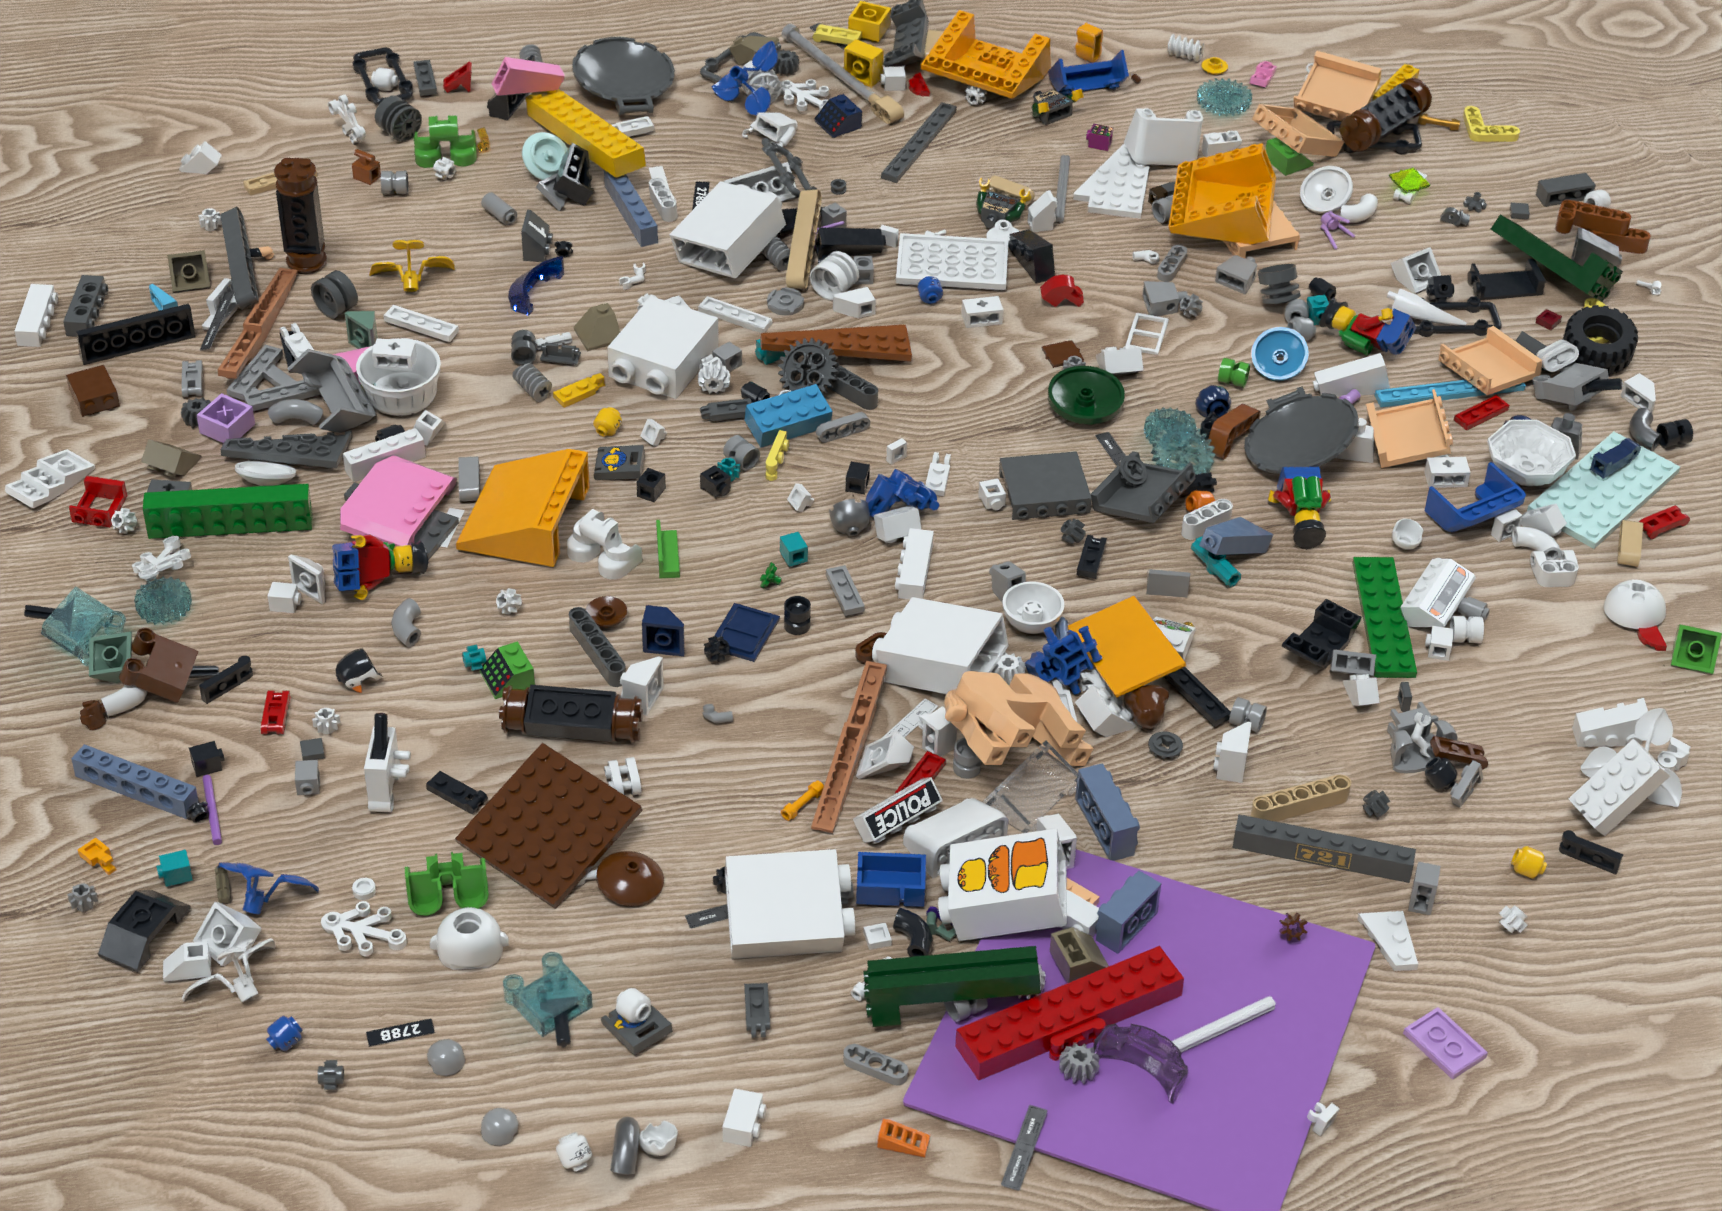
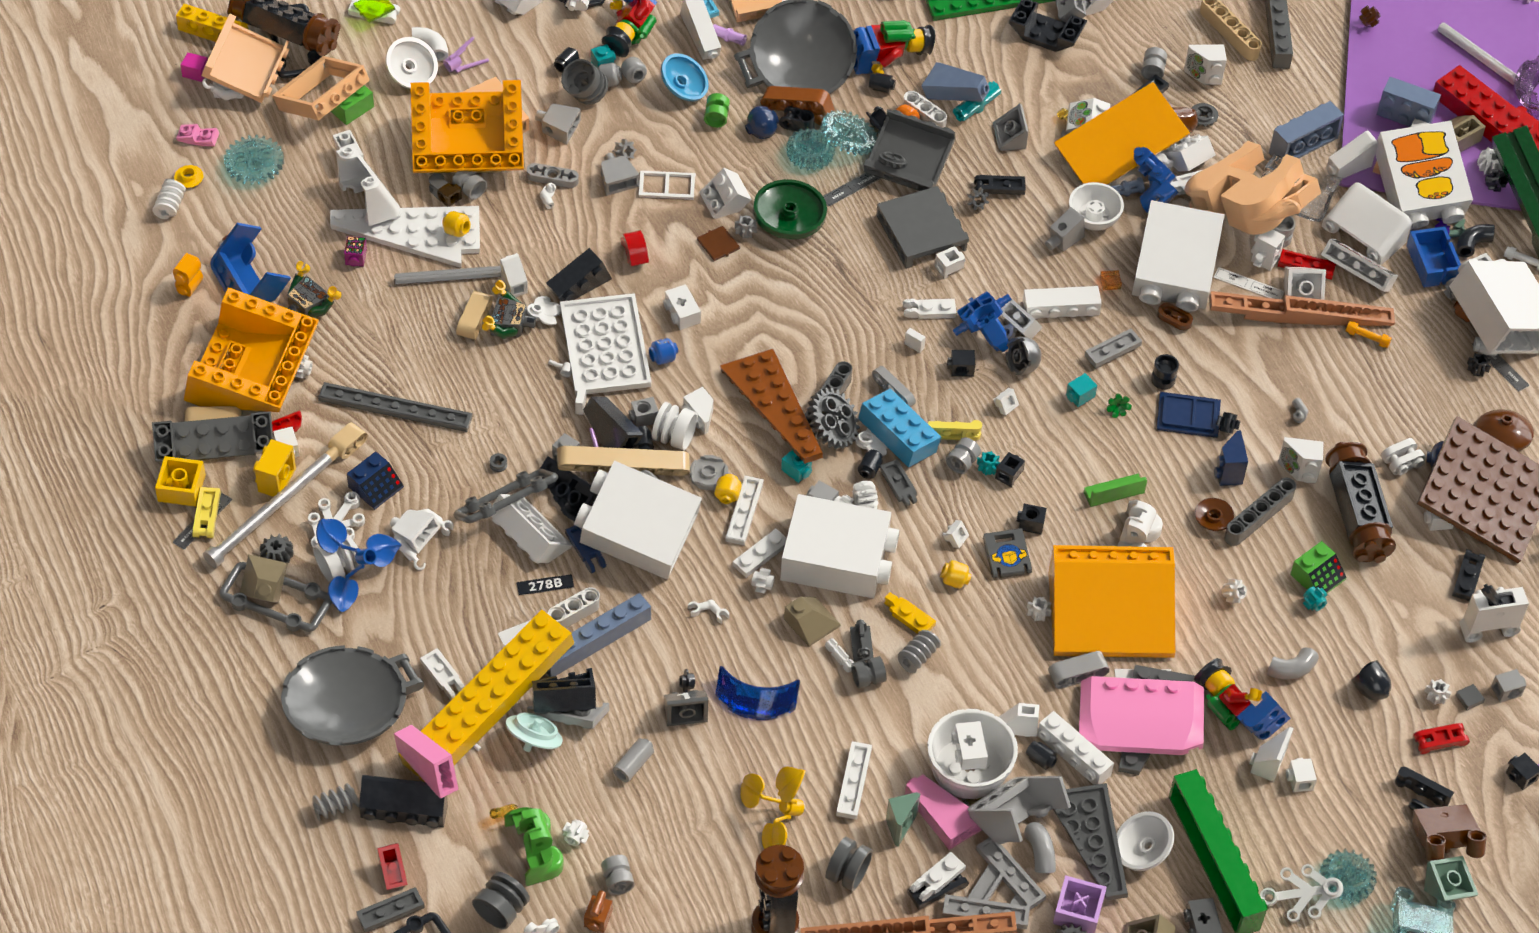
camera: 105 degrees left, 10 degrees up
(125, 699) = (1496, 869): piece -> none
(757, 301) = (728, 489): none -> yellow head
(1111, 185) = (456, 224): none -> yellow head
(1256, 496) = (882, 82): none -> black brick

